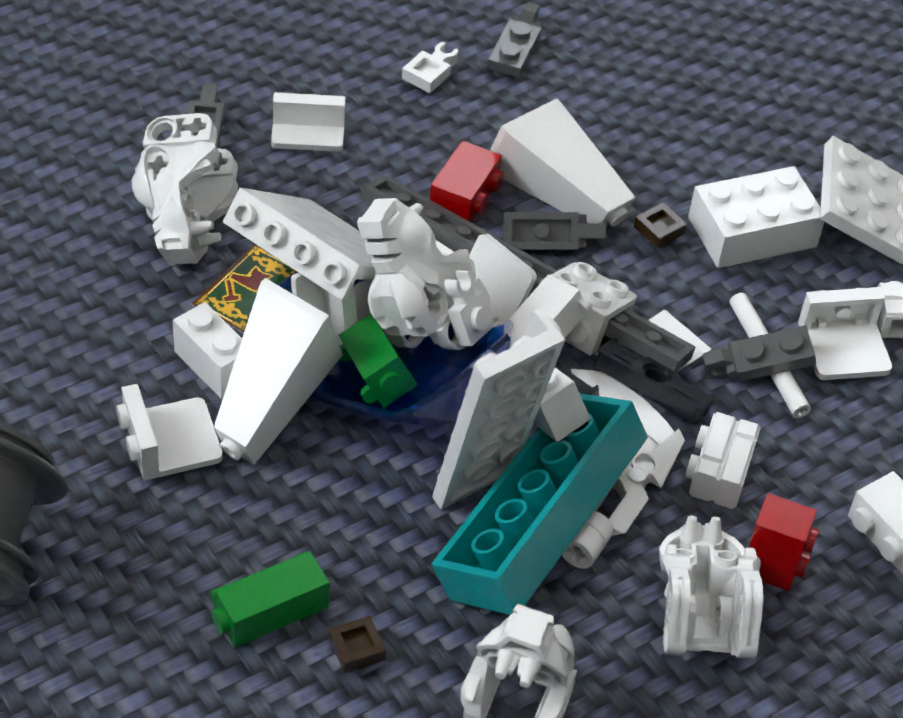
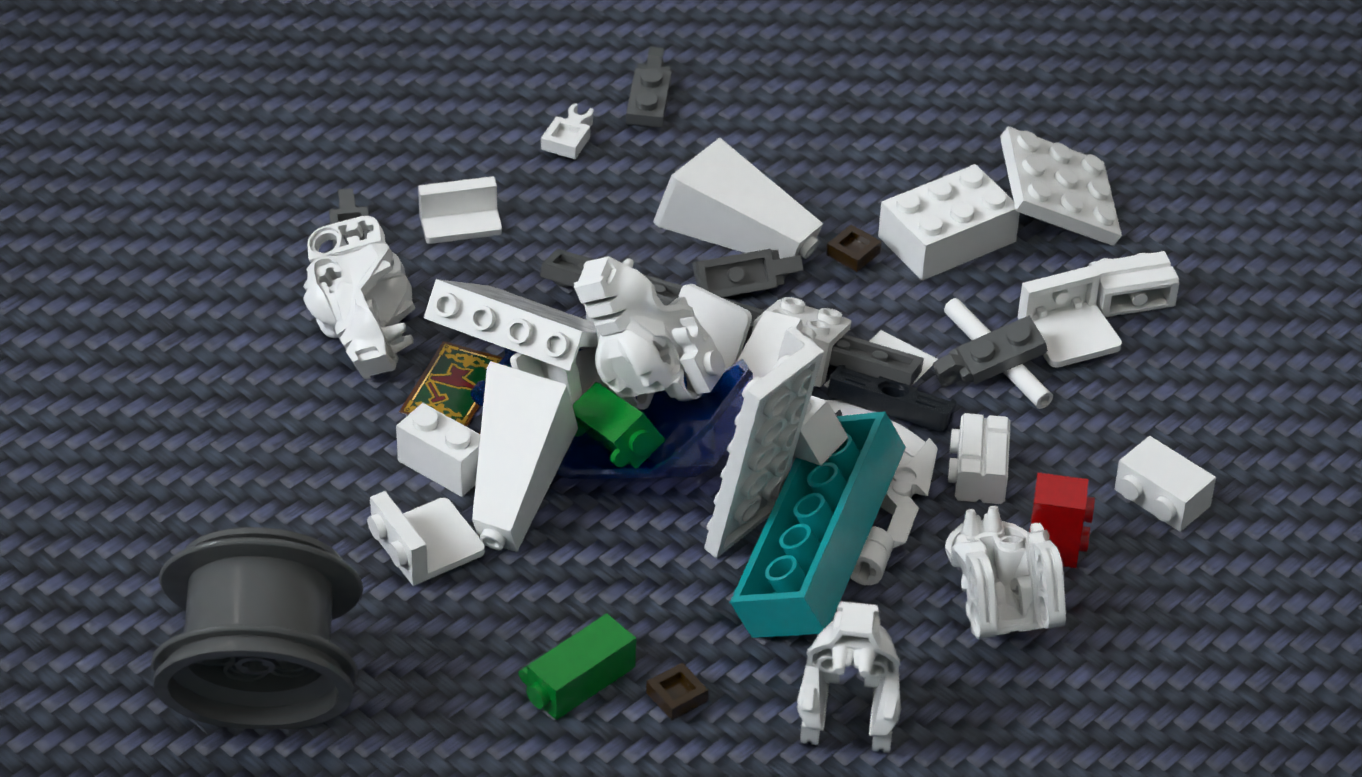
camera: 10 degrees left, 5 degrees down
(467, 180) = (647, 236): brick -> none

